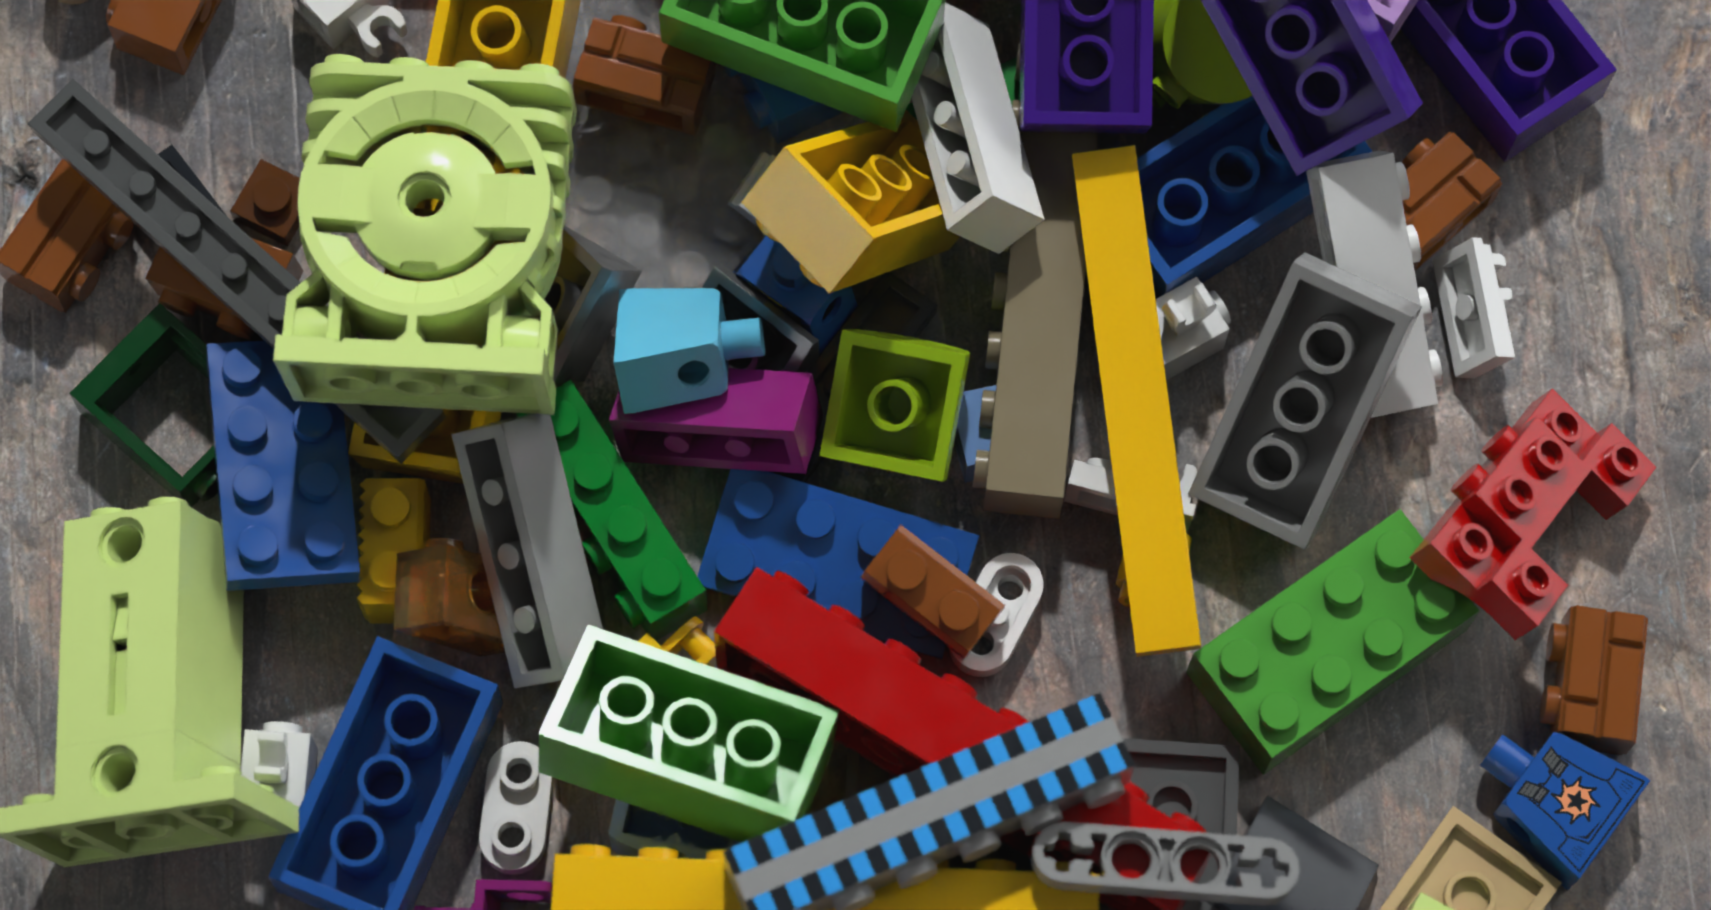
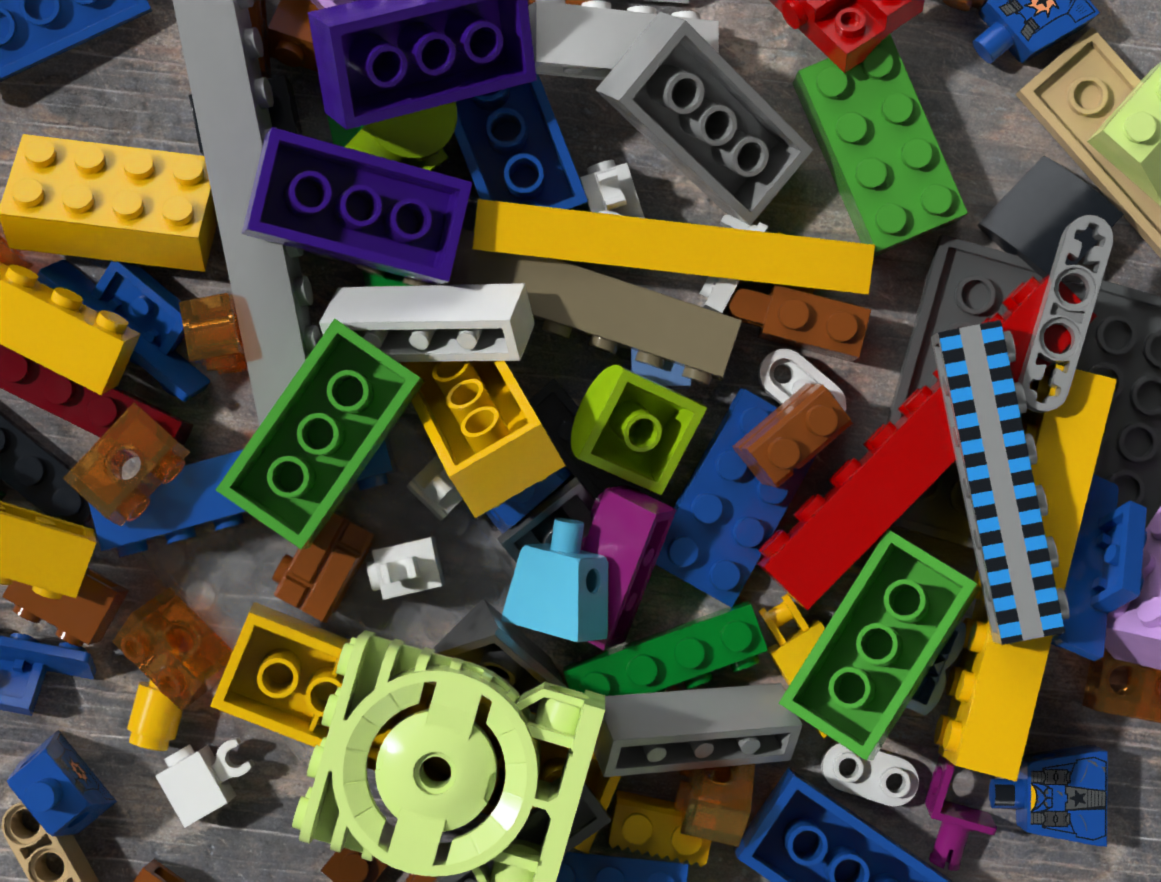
camera: 70 degrees left, 15 degrees up
(660, 171) = (406, 568): none -> white brick
(1084, 594) = (803, 320): none -> dark orange brick

